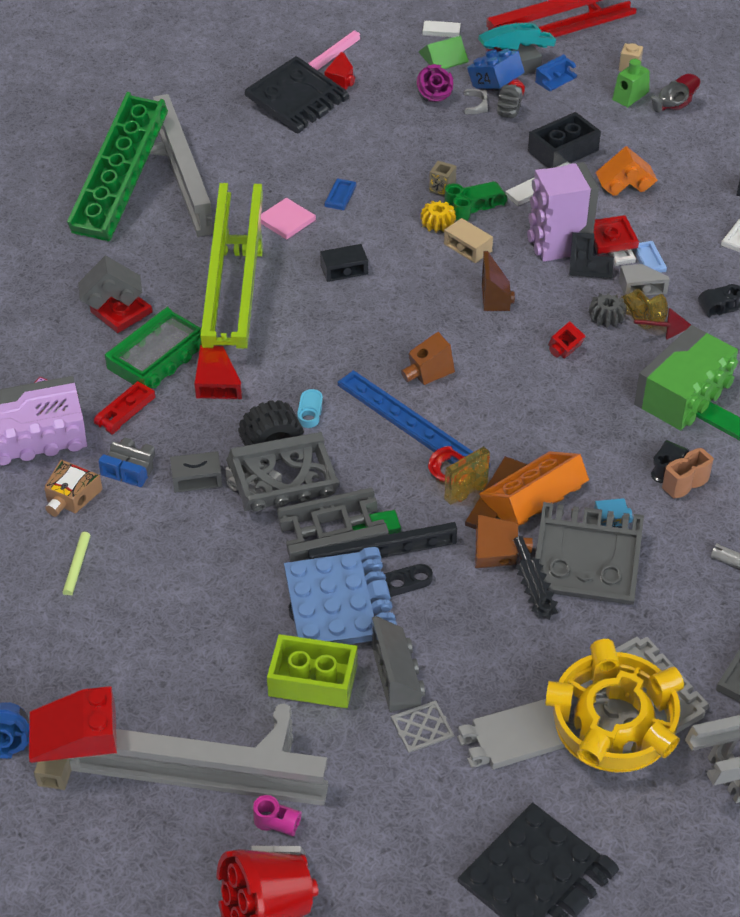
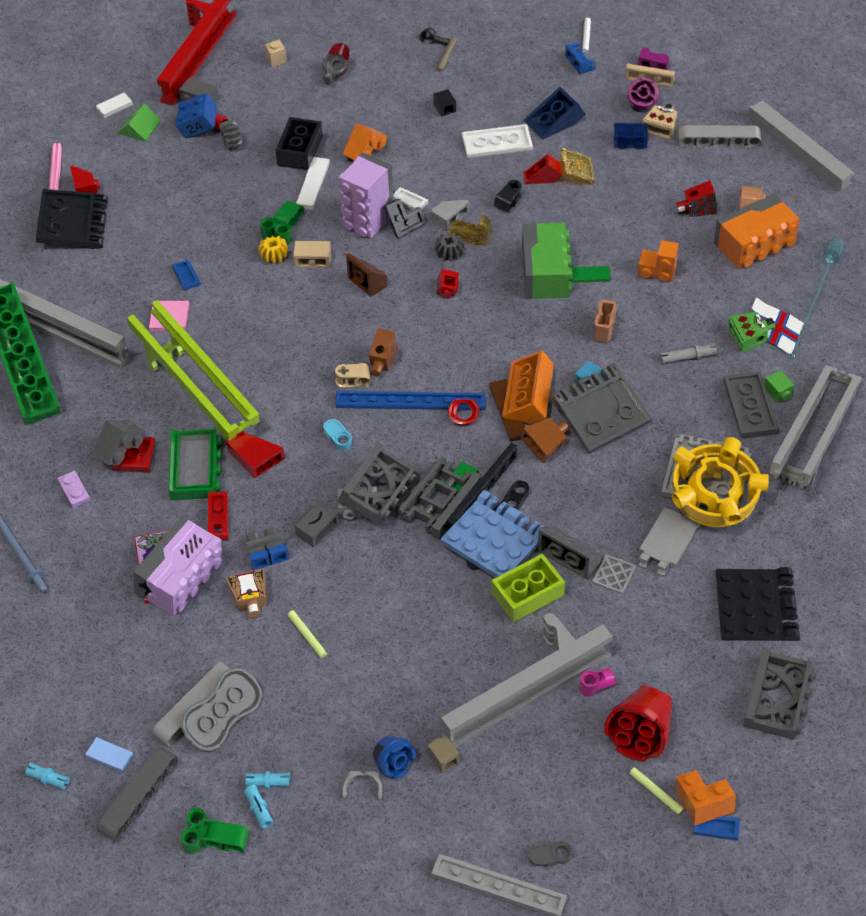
camera: 40 degrees left, 5 degrees up
(43, 306) = (73, 489): none -> lavender plate
(74, 726) = (451, 715): red slope -> none
(269, 423) = (341, 463): black tyre -> none
(280, 849) = (619, 699): light grey window -> none
(344, 262) = (248, 322): black brick -> none
(382, 367) = (353, 374): none -> tan piece
(434, 83) = (165, 152): magenta cone -> none
(441, 176) = (249, 220): dark tan brick -> none
(467, 476) = (488, 409): clear yellow plate -> none
(481, 108) = (203, 140): light grey cap -> none
(513, 35) = (187, 82): teal slope -> none
(534, 580) = (589, 445): black piece -> none
(555, 73) = (235, 94): blue hinge -> none
(614, 235) = (406, 190): red plate -> none
(631, 83) = (299, 66): bright green torso -> none
(649, 256) = (433, 193): light blue tile -> none
(668, 452) = (584, 321): black piece -> none
(674, 324) = (499, 229): dark red piece -> none

